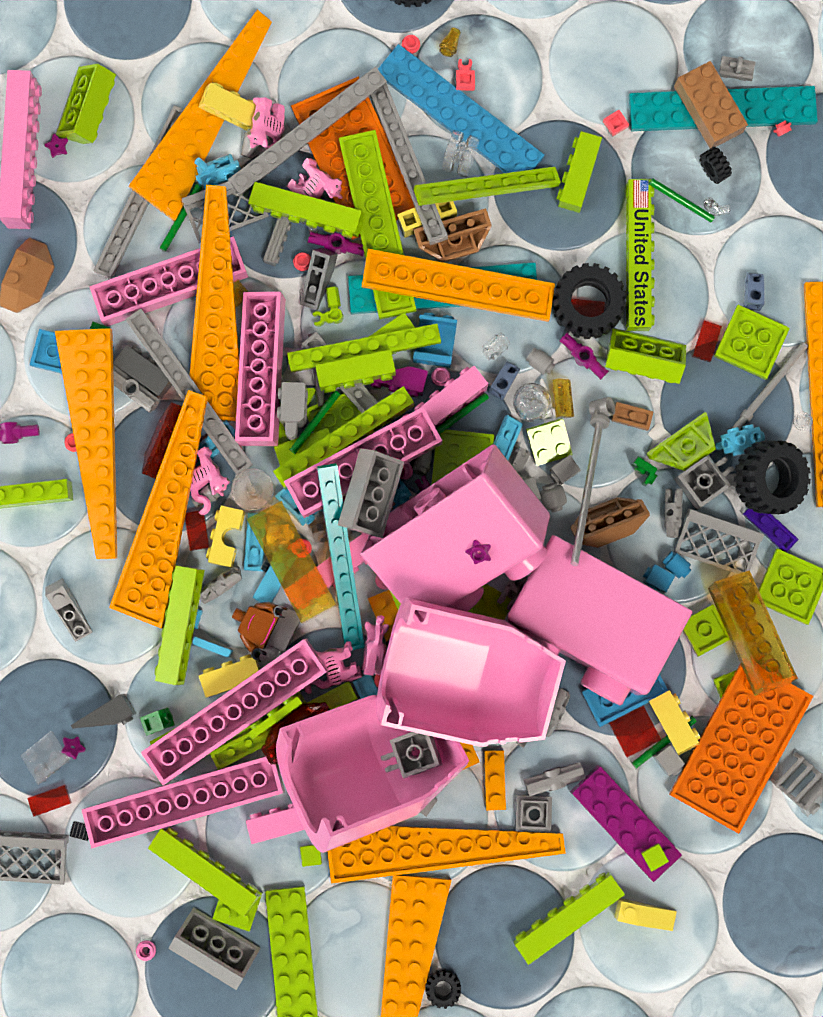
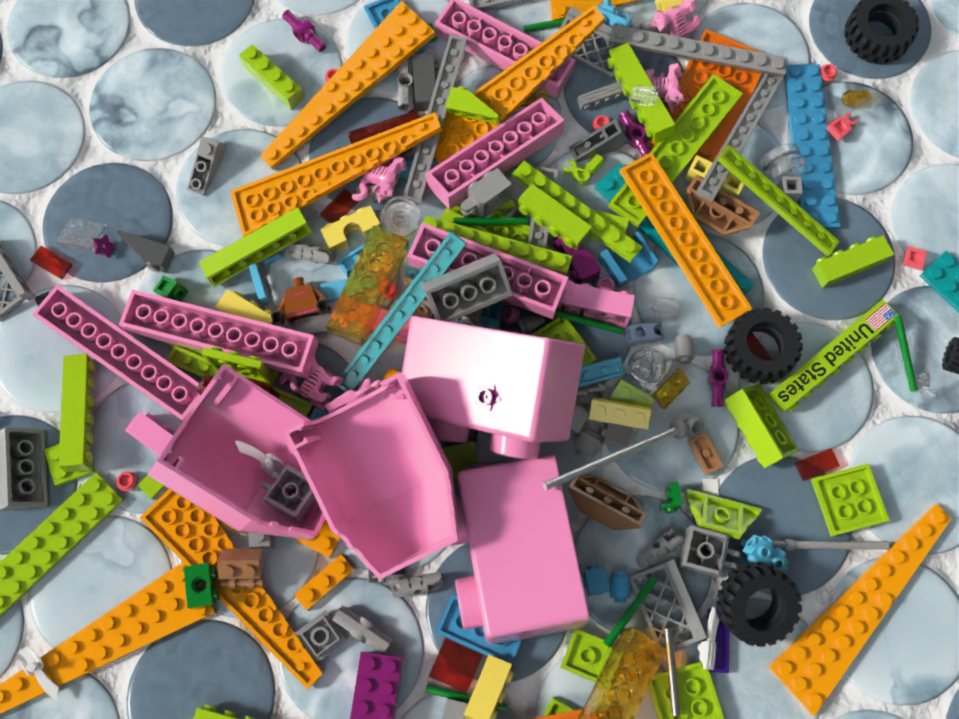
camera: 50 degrees right, 10 degrees down
(200, 358) = (466, 104): none -> lime slope
(291, 872) = (126, 481): none -> coral plate
(317, 213) = (644, 95): none -> clear brick
(371, 752) = (268, 461): none -> white piece
(432, 885) = (193, 576): none -> green brick
(437, 834) = (241, 567): none -> medium nougat brick
(452, 997) = (106, 674): black tyre -> none
(483, 165) = (791, 186): none -> light grey brick
(553, 454) = (620, 413): none -> light yellow brick
(701, 572) = (630, 612): none -> green bar
(754, 292) = (890, 468): sand blue leg -> none
(766, 579) = (672, 675): none -> flat silver bar
(770, 539) = (708, 648): none -> white piece

